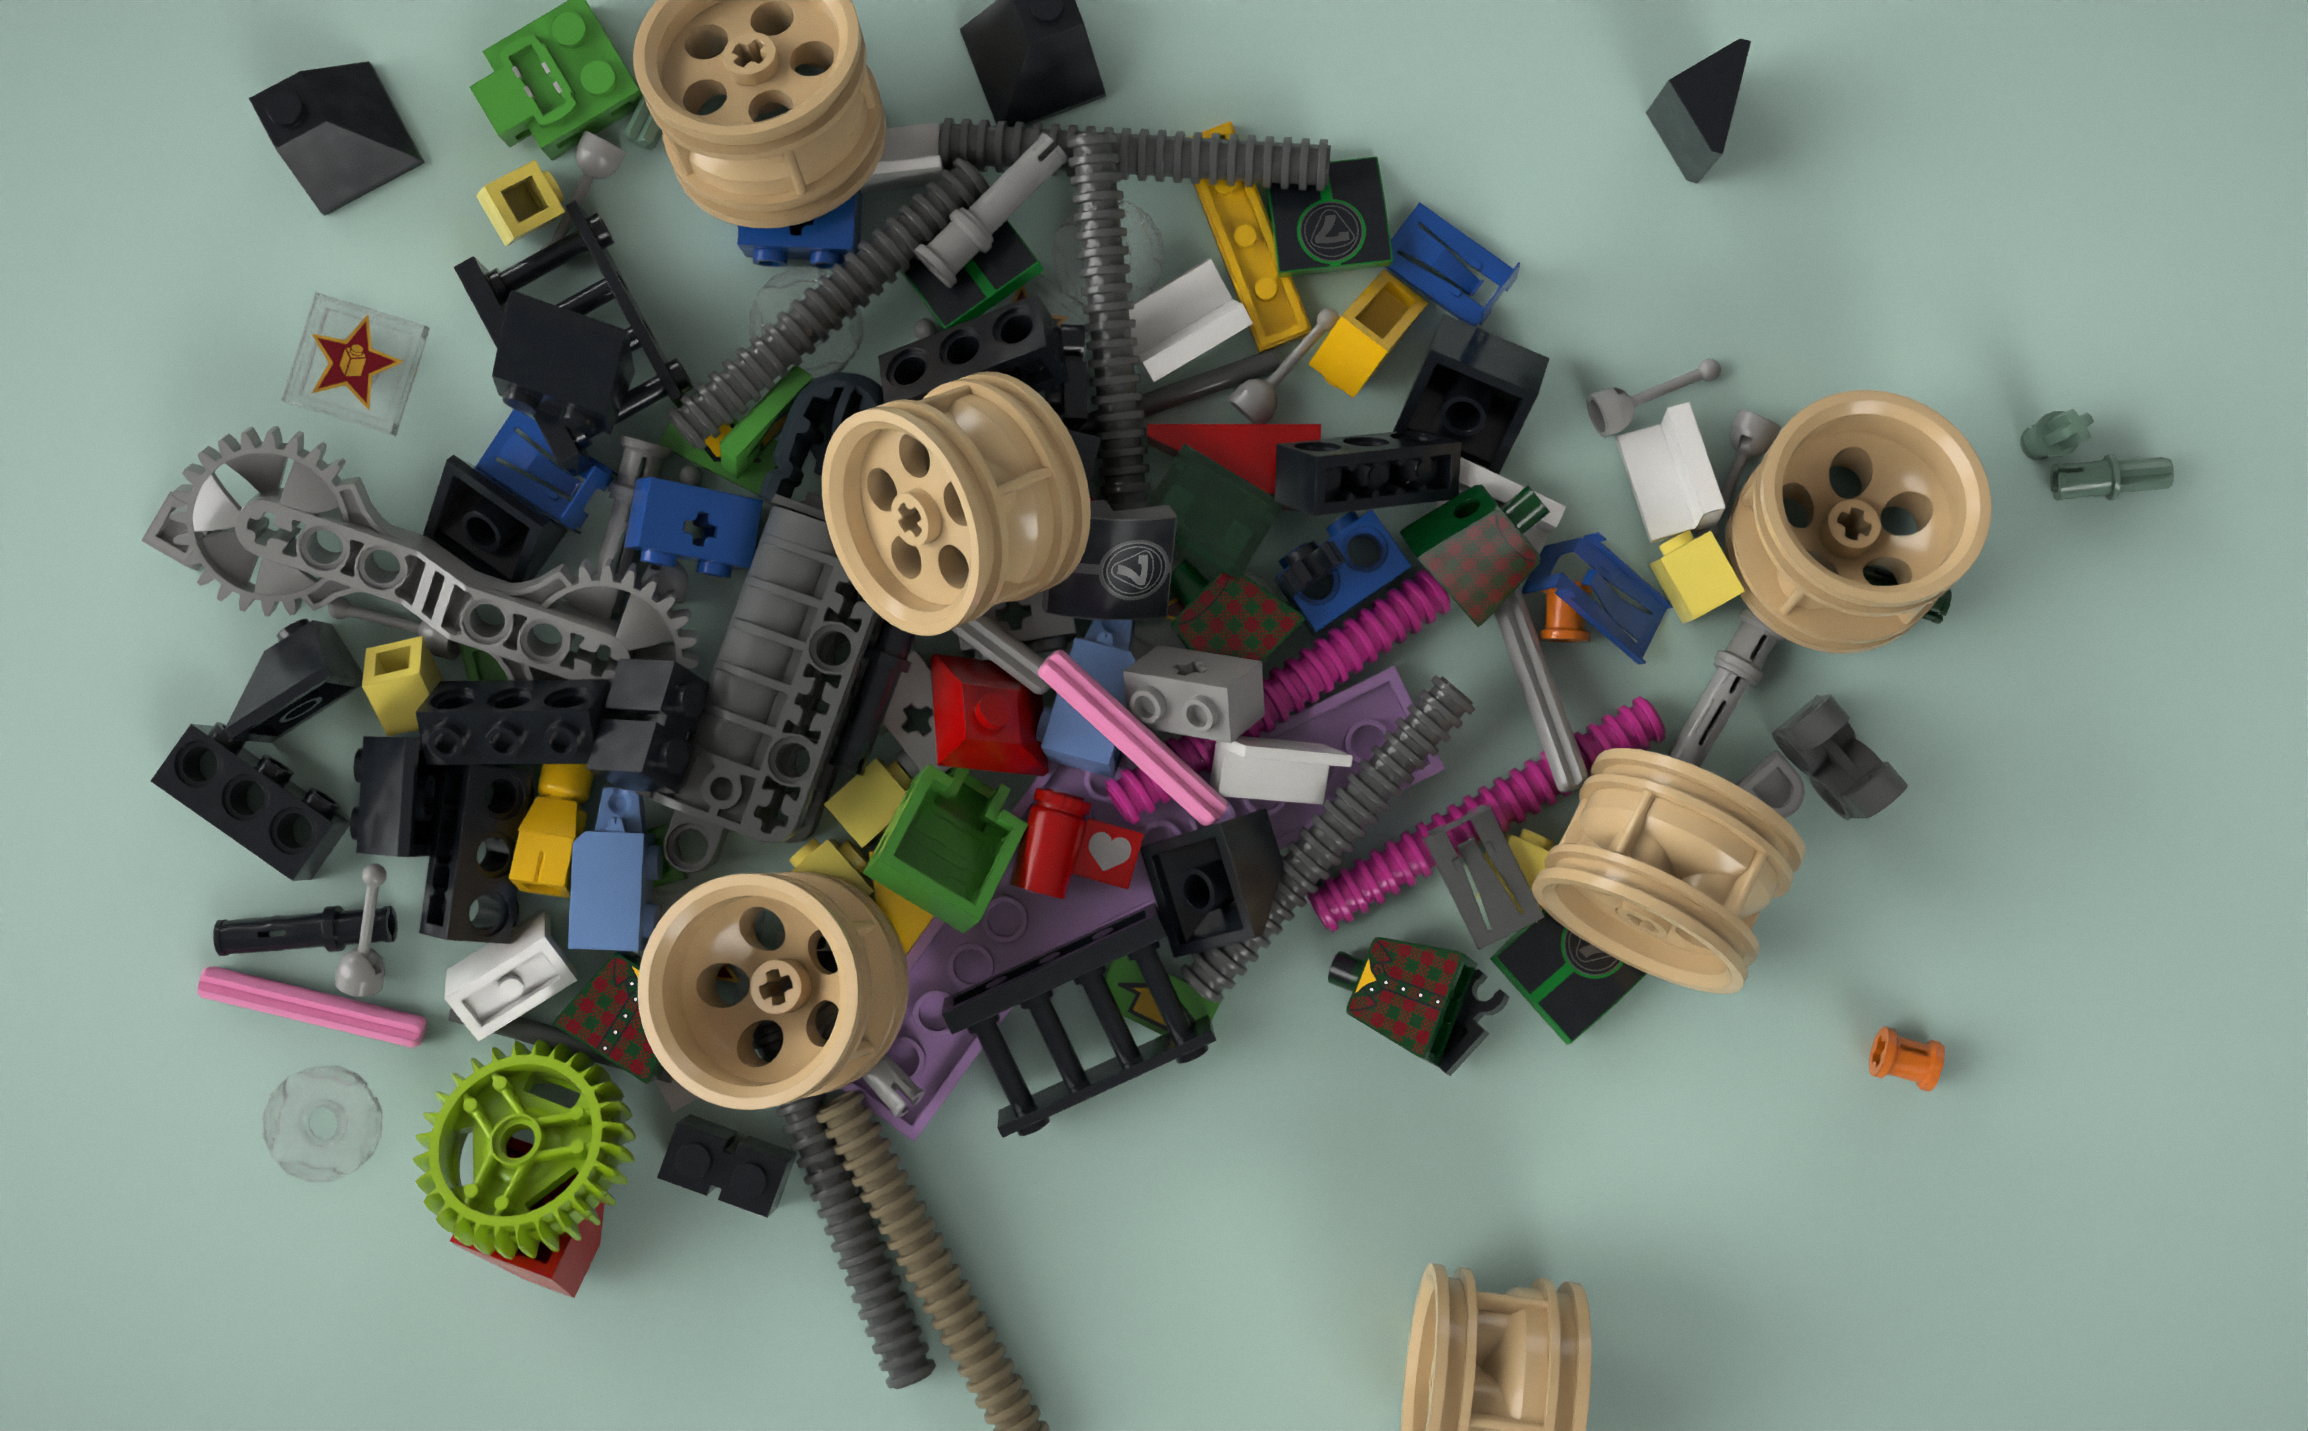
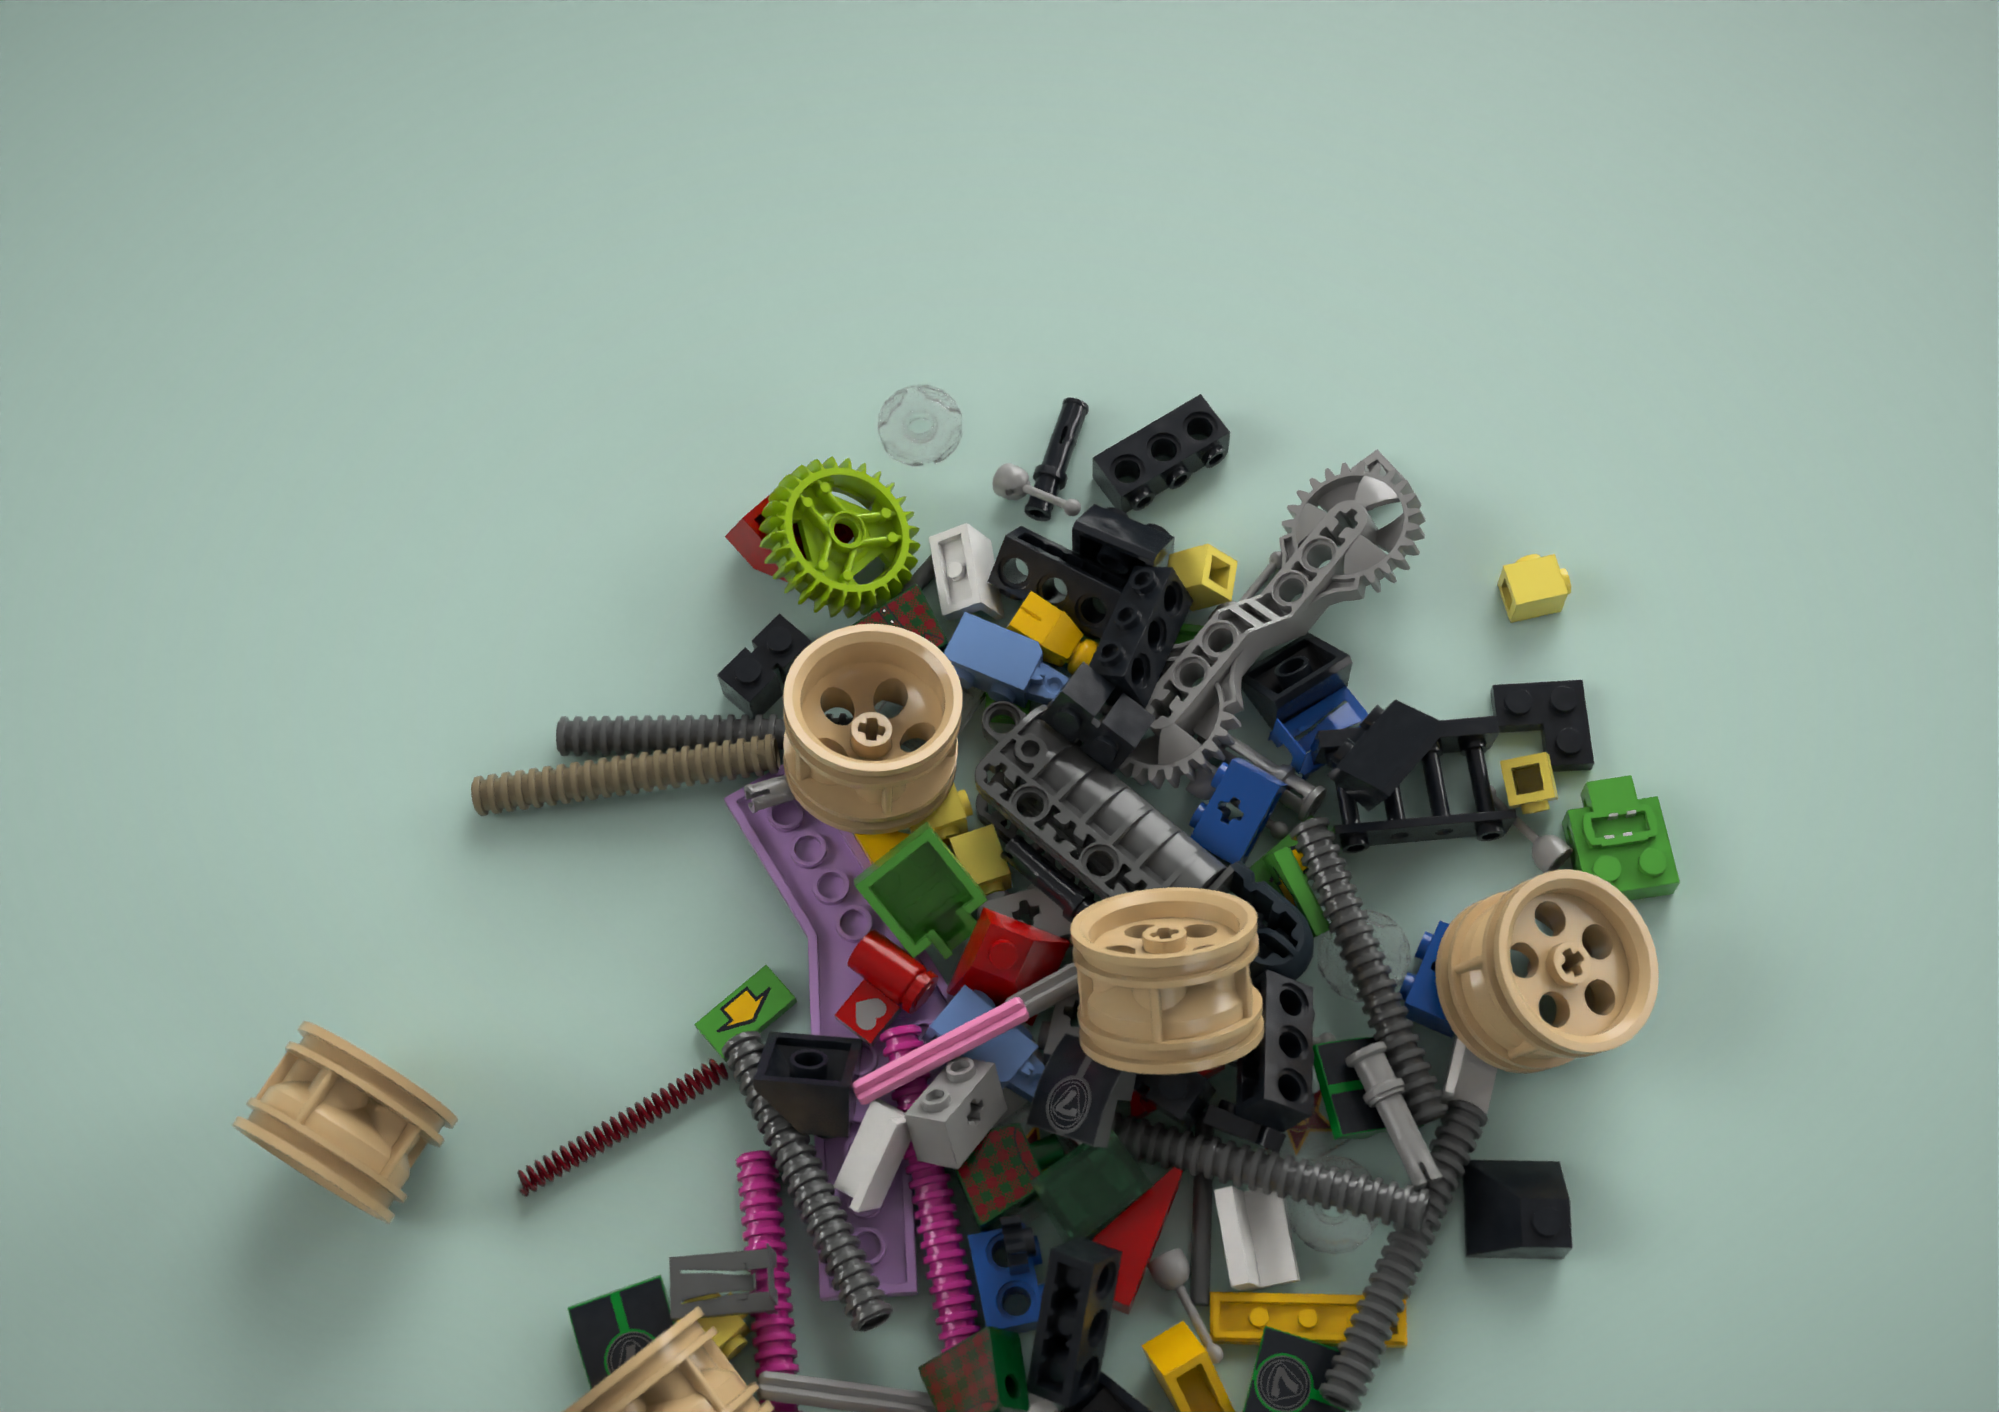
camera: 120 degrees right, 20 degrees down
(260, 286) = (1533, 587): none -> light yellow brick
(294, 682) = (1234, 508): black slope -> none
(312, 1006) = (1002, 446): bright pink axle -> none
(337, 132) = (1632, 678): black slope -> none
(355, 364) = (1453, 632): clear tile -> none
(413, 214) = (1556, 711): none -> black plate
(1084, 963) = (795, 960): black fence -> none
(1342, 1075) = (624, 1122): none -> dark red piece
(1406, 992) = (661, 1192): torso -> none
(1467, 1032) = (623, 1221): black plate -> none

